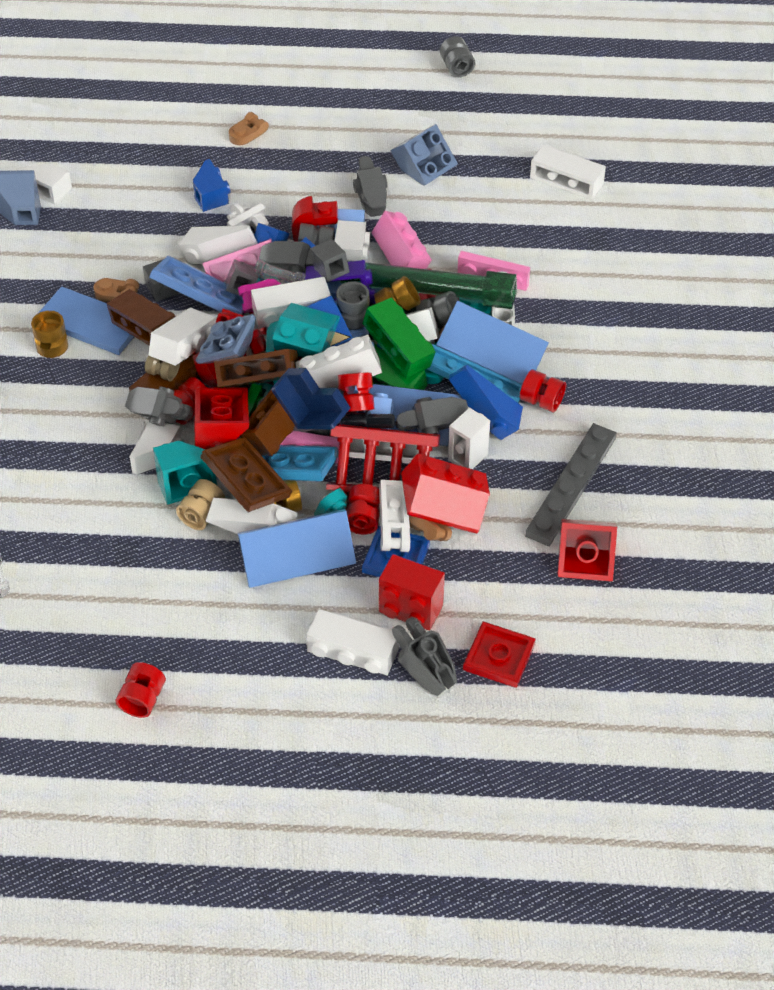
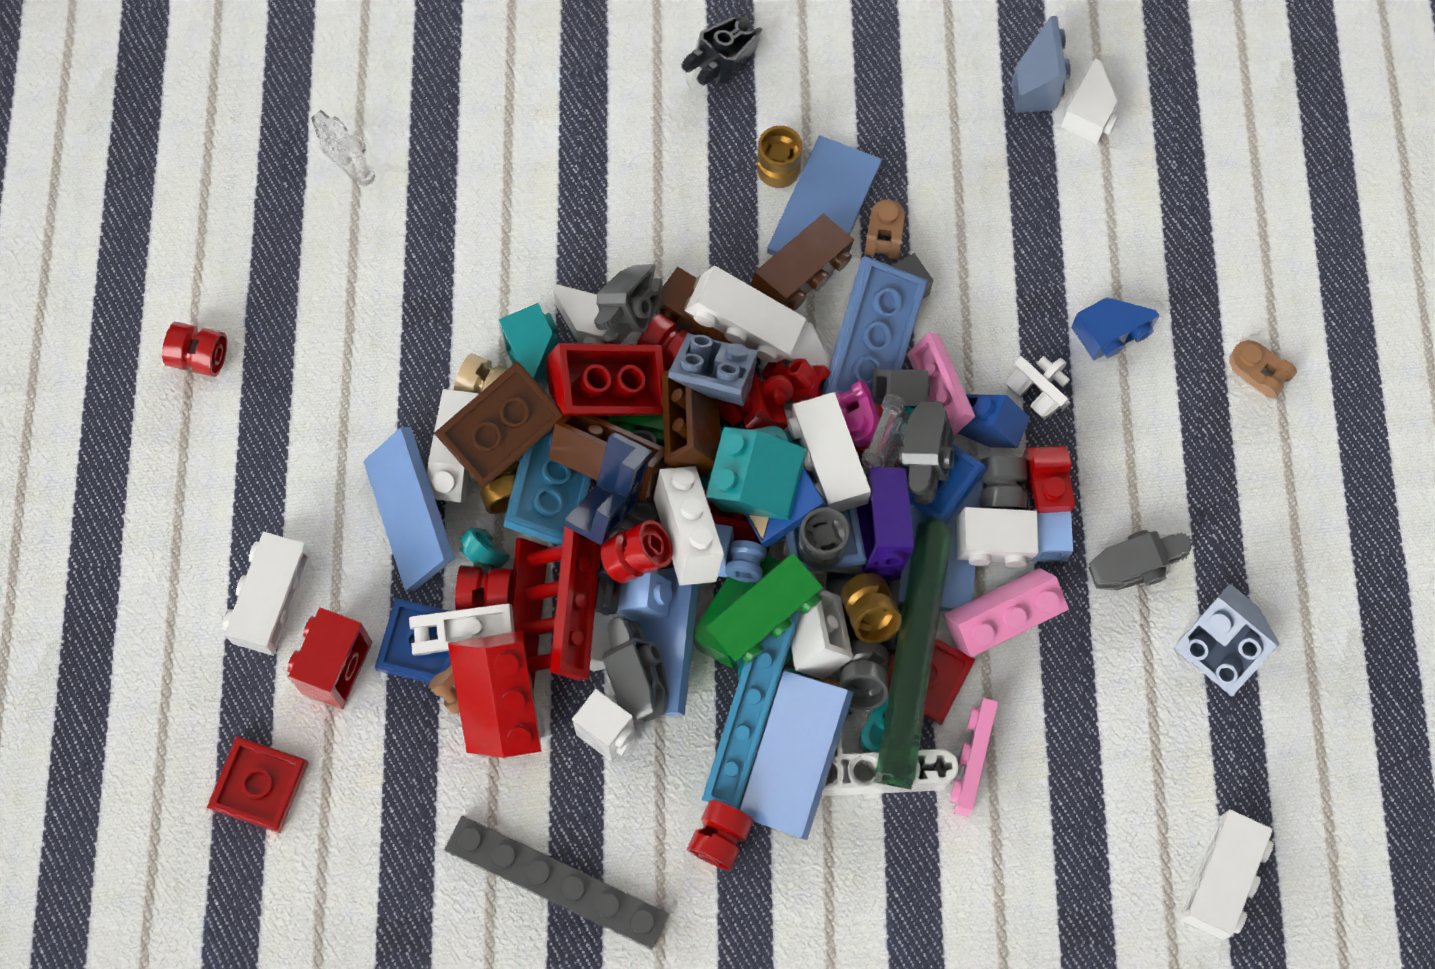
camera: 85 degrees right, 20 degrees up
(209, 243) = (973, 339): white slope -> none
(329, 260) = (896, 493): dark grey brick -> none
(425, 657) = (233, 682): dark grey hinge -> none
(488, 400) = (665, 756): blue slope -> none
(587, 550) = (427, 900): red slope -> none

